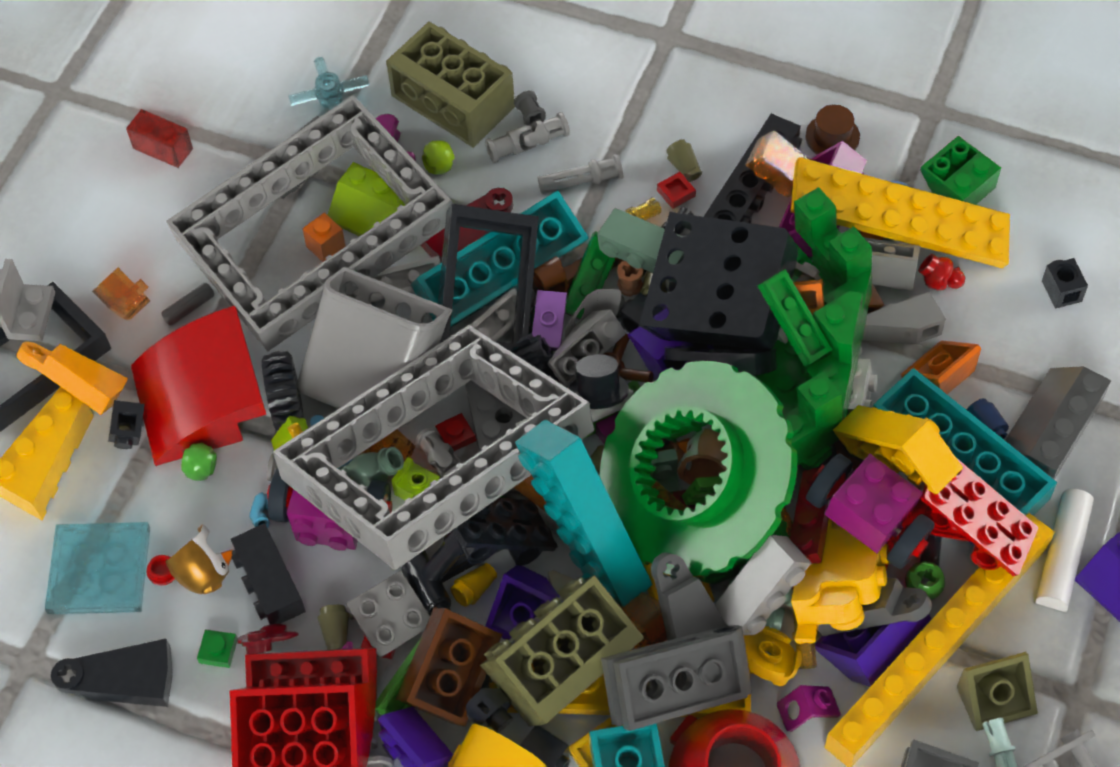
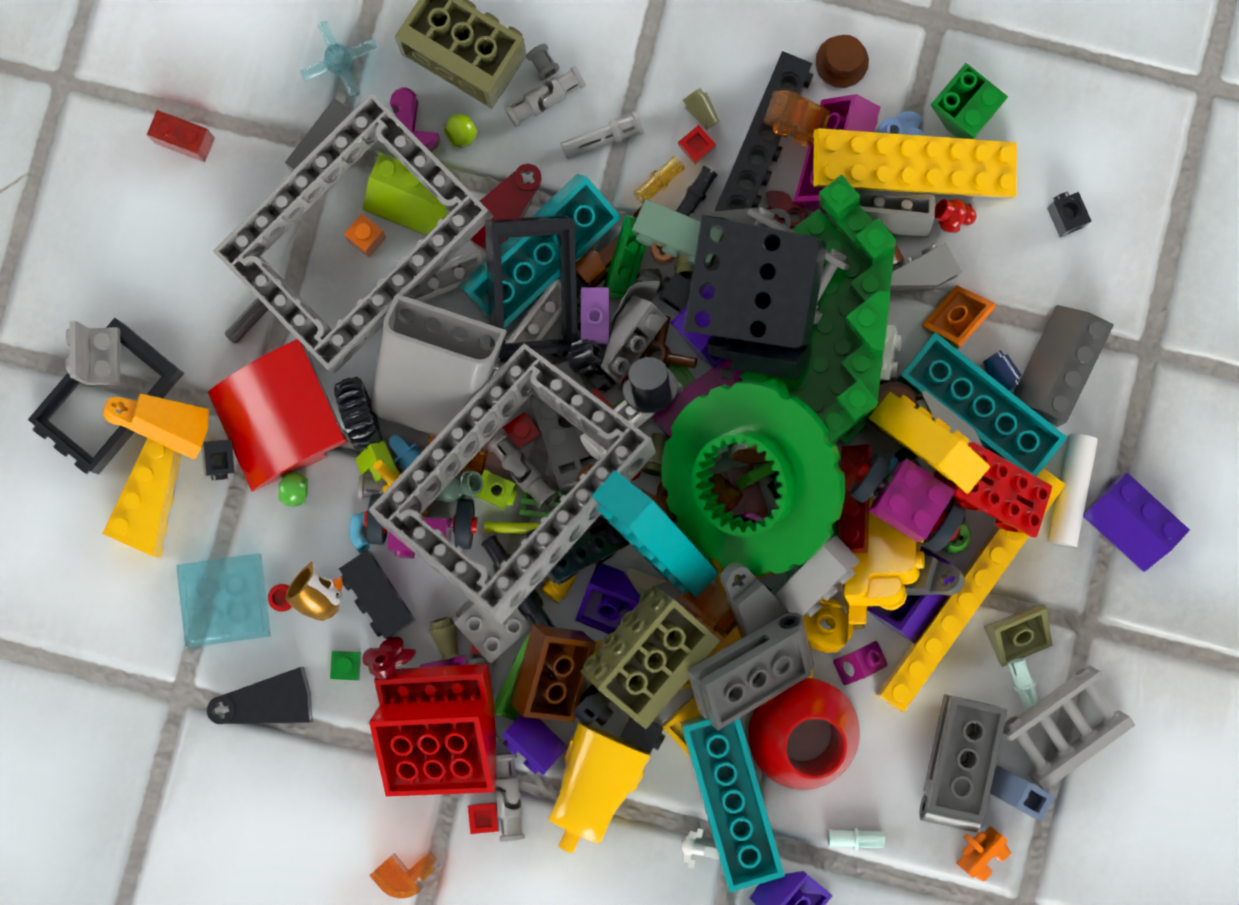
camera: 10 degrees left, 25 degrees up
(122, 294) = (182, 319): clear orange brick -> none
(794, 317) = (829, 323): green tile -> none
(811, 293) = (838, 292): orange brick -> none

